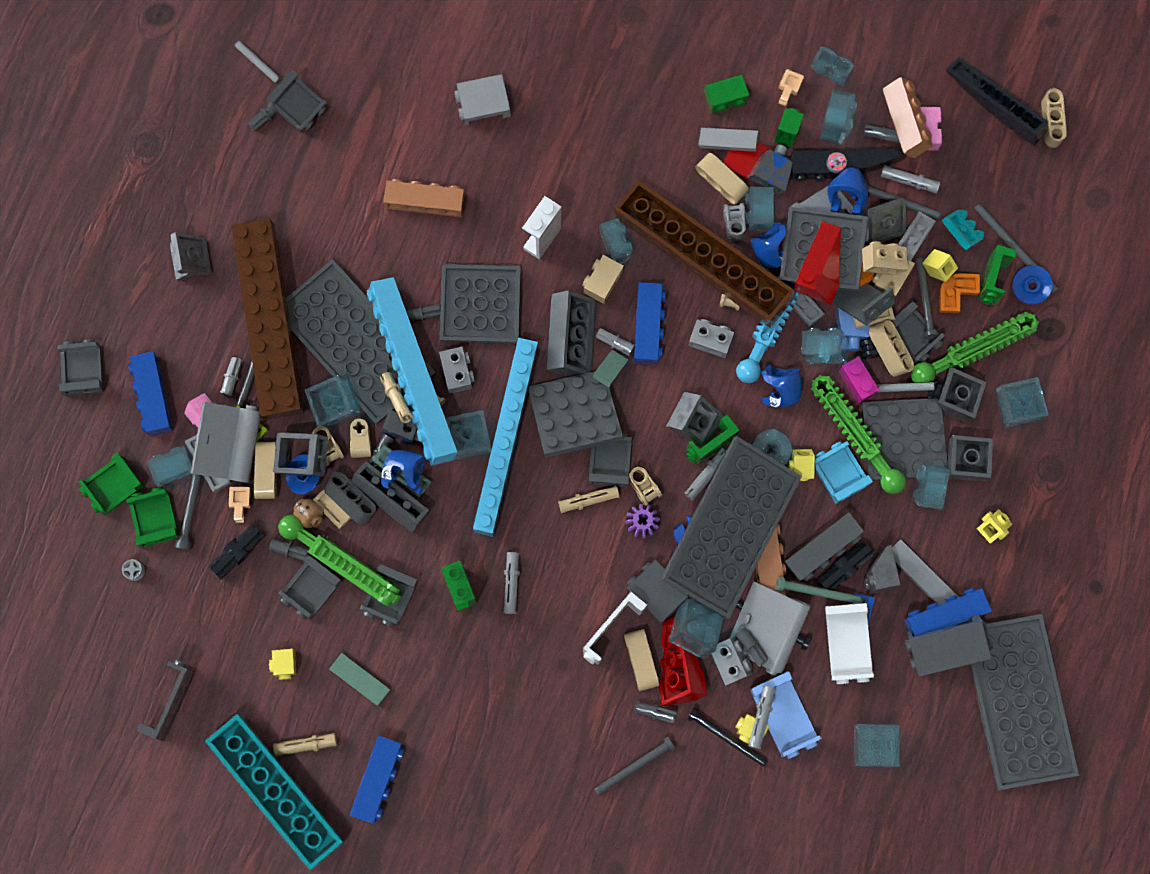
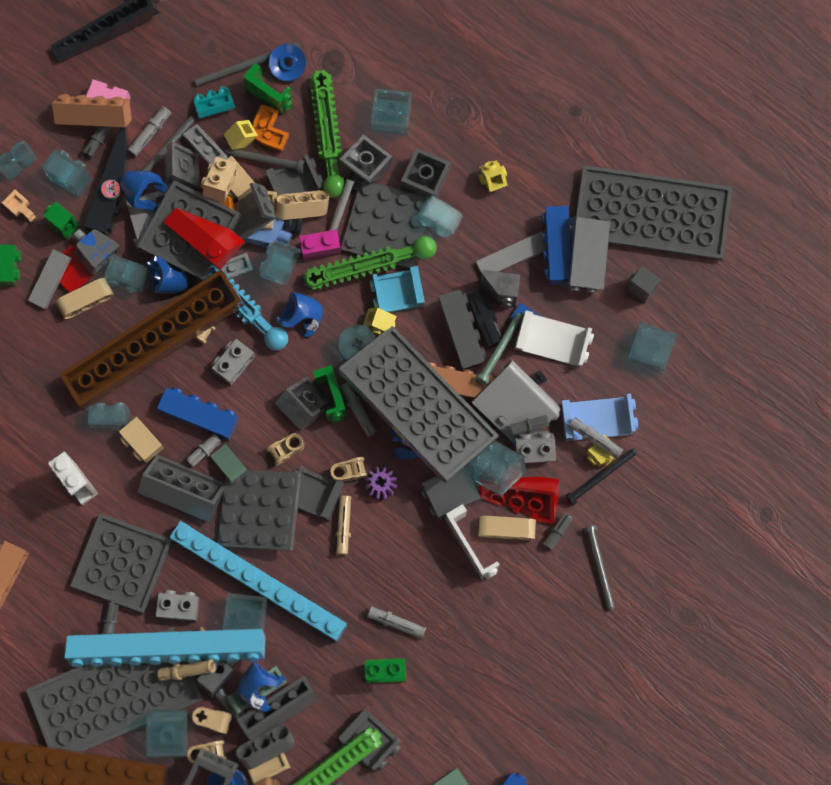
camera: 70 degrees left, 0 degrees up
(641, 415) = (284, 449): none -> tan piece
(734, 218) = (126, 300): light grey piece -> none
(939, 714) = (642, 284): none -> dark grey brick

